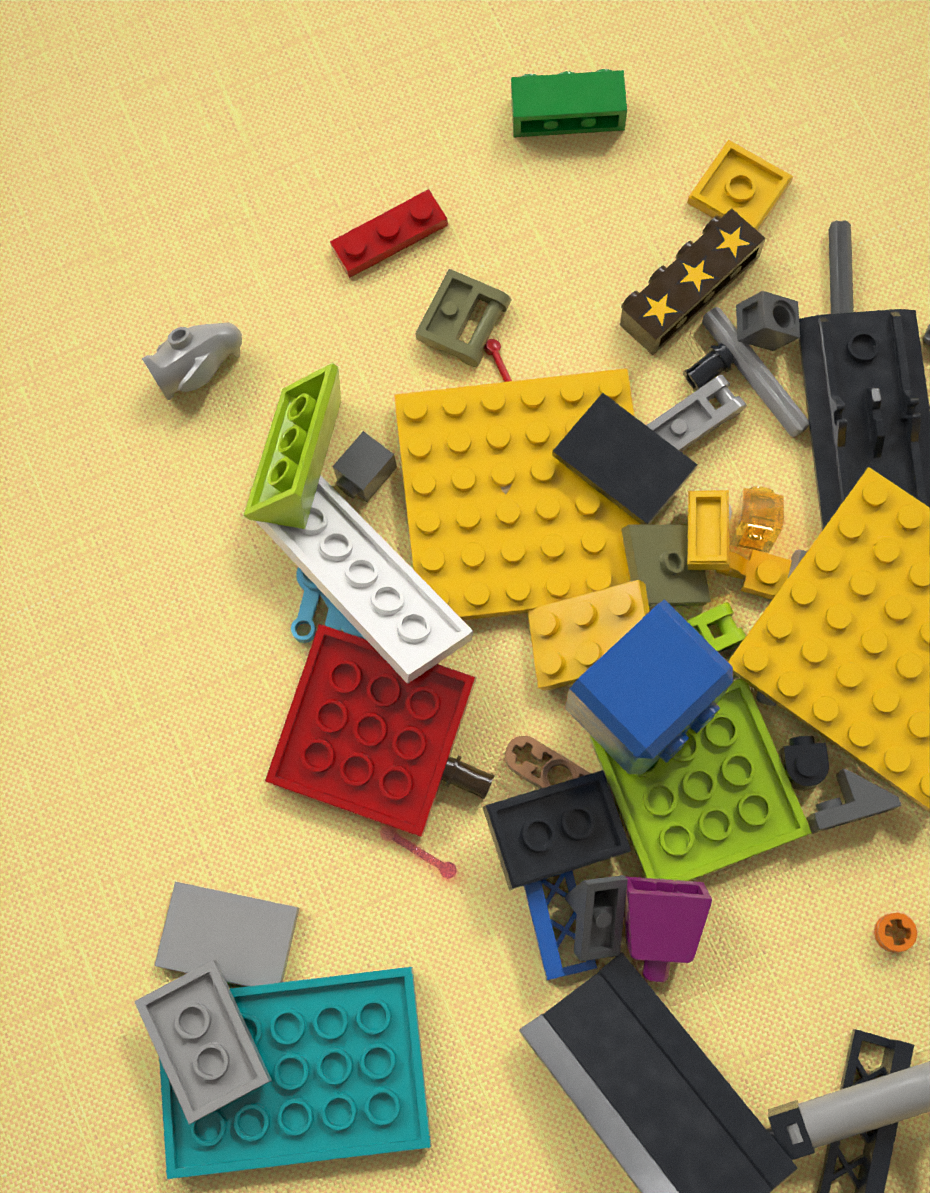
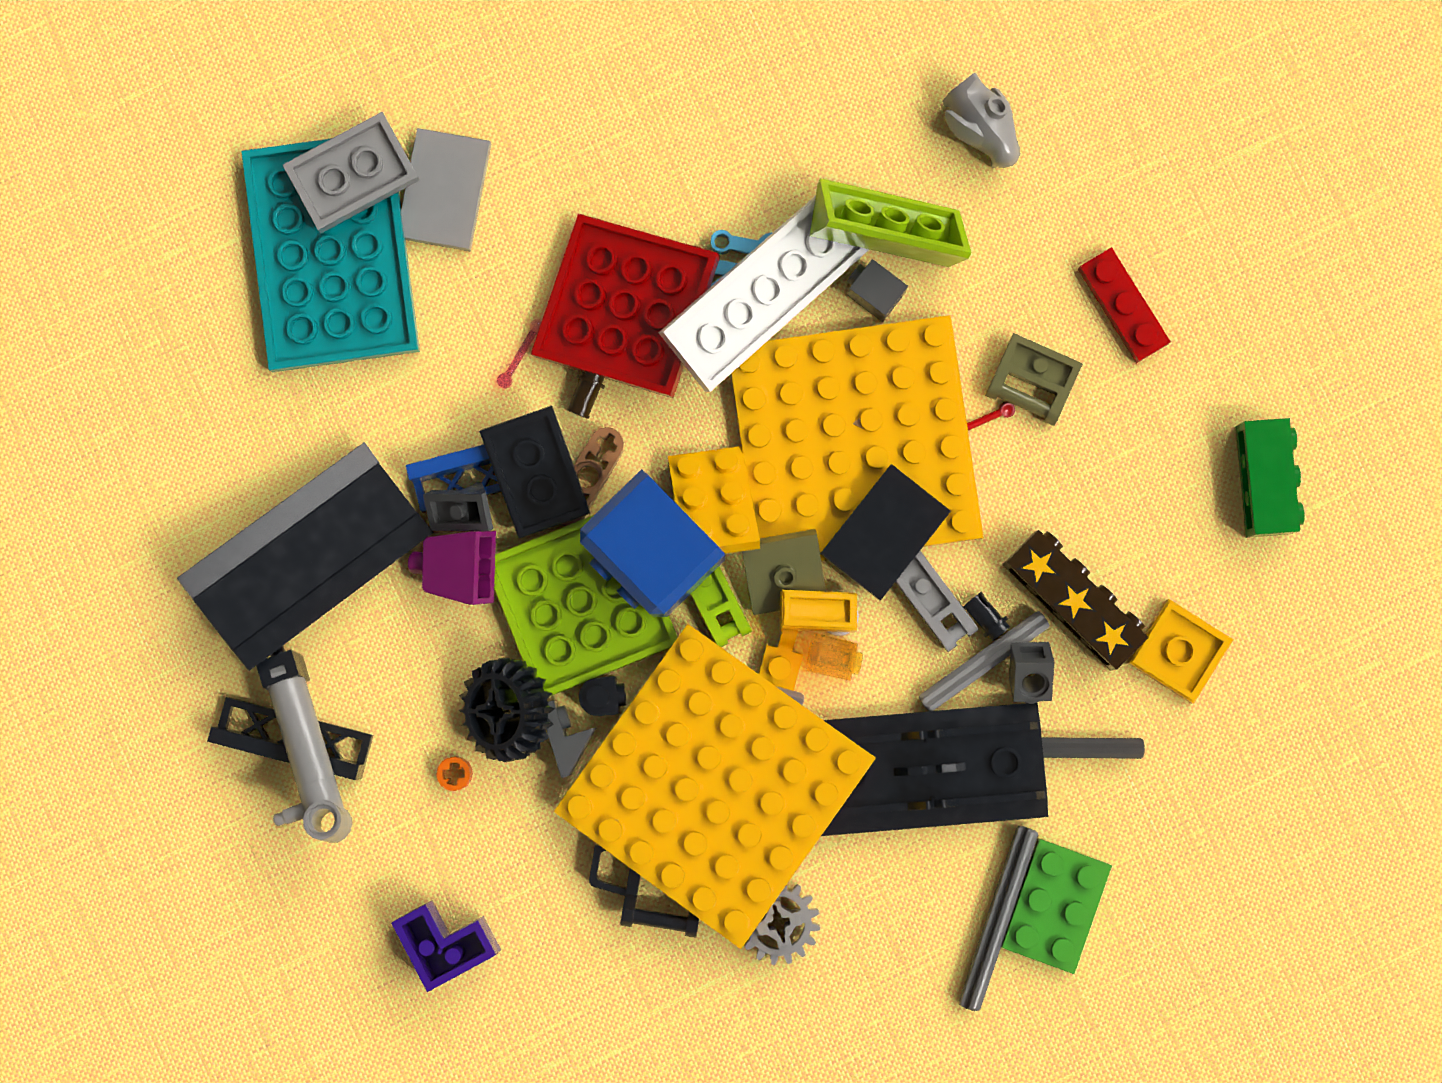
camera: 85 degrees right, 10 degrees up
(814, 855) = (516, 689): none -> black gear

